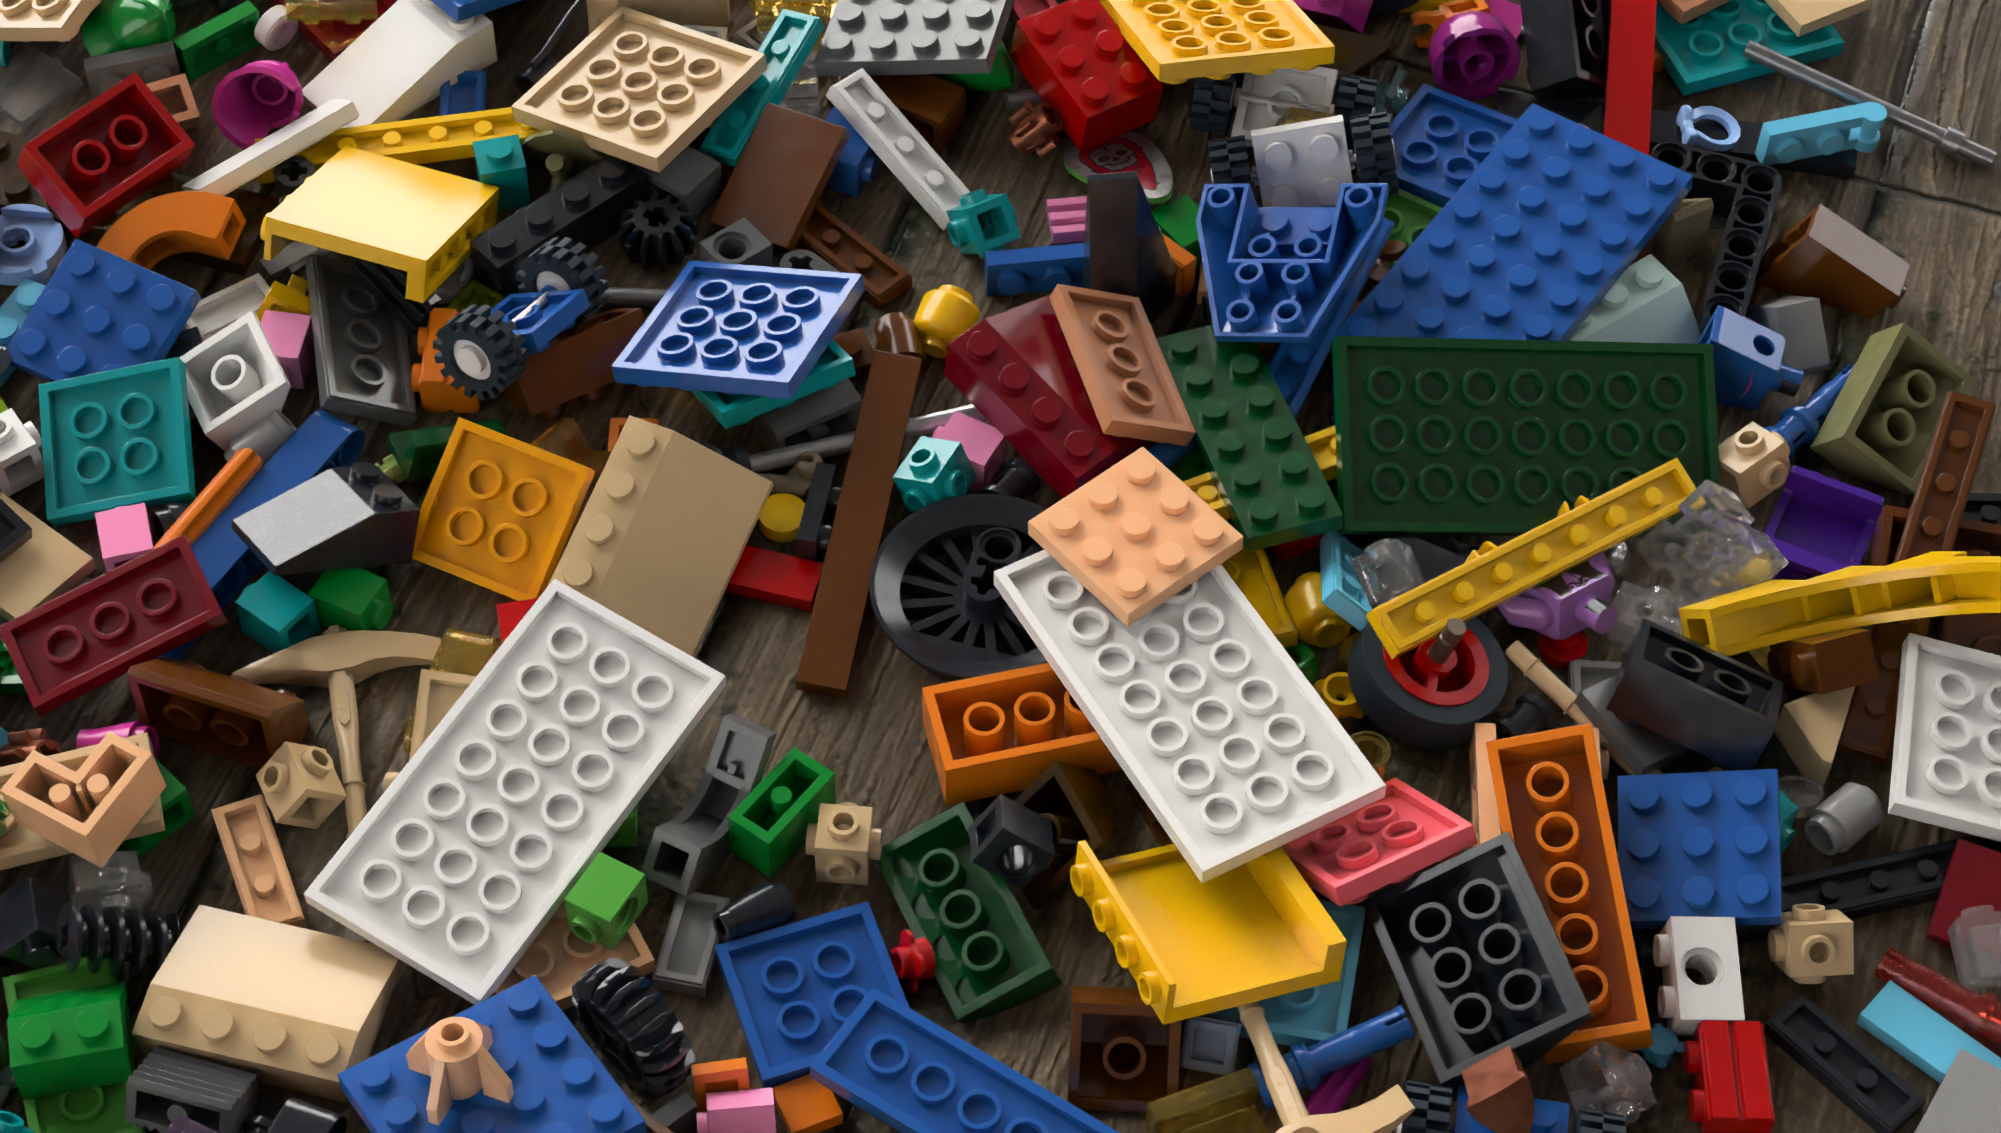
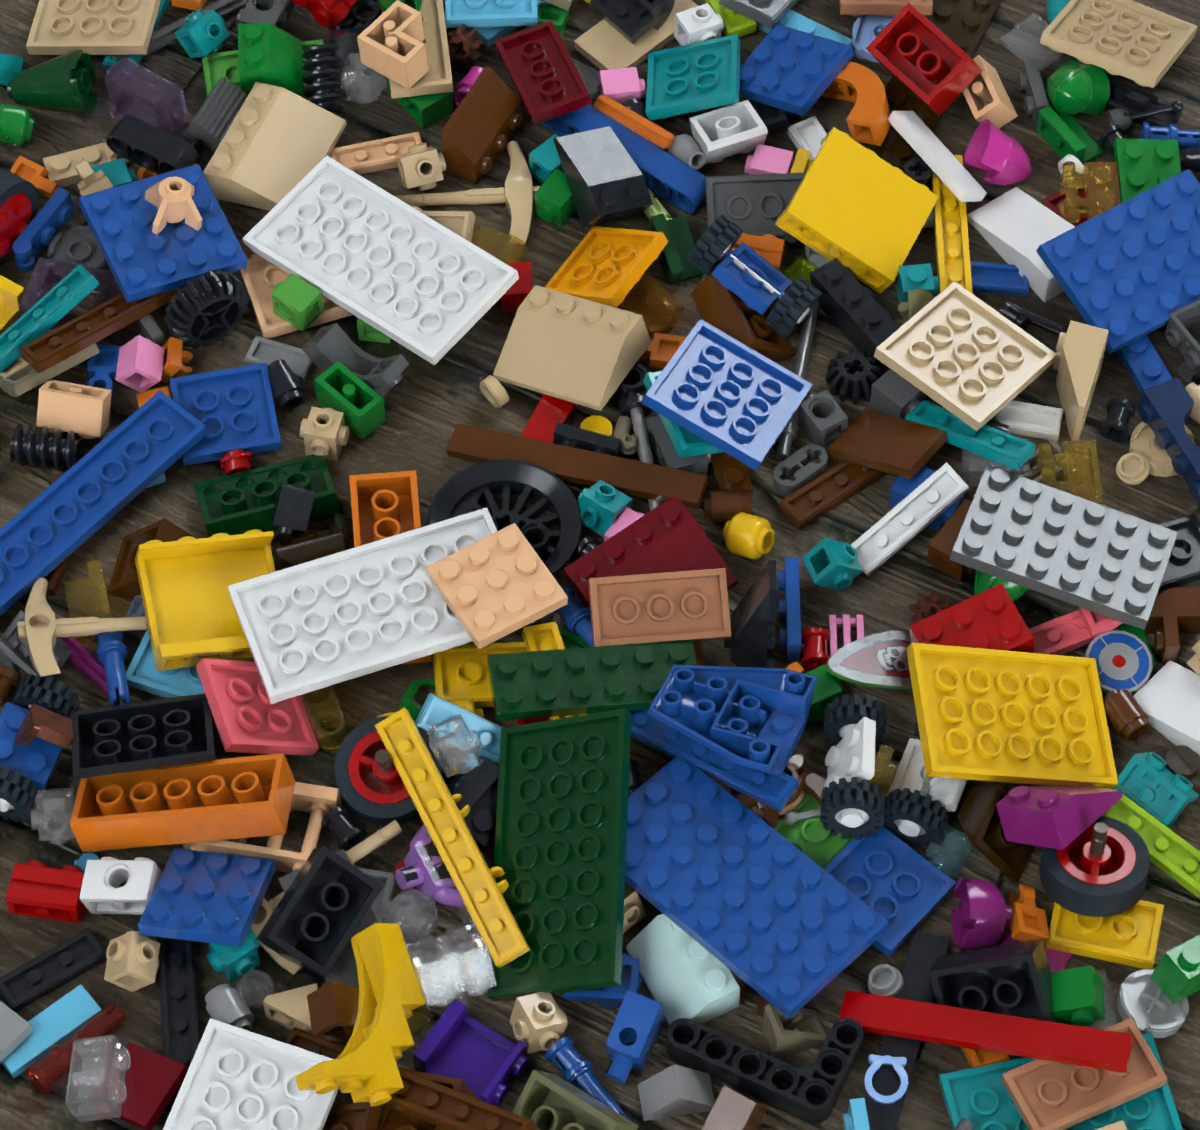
camera: 100 degrees right, 5 degrees up
(733, 640) = (494, 391): none -> tan tile

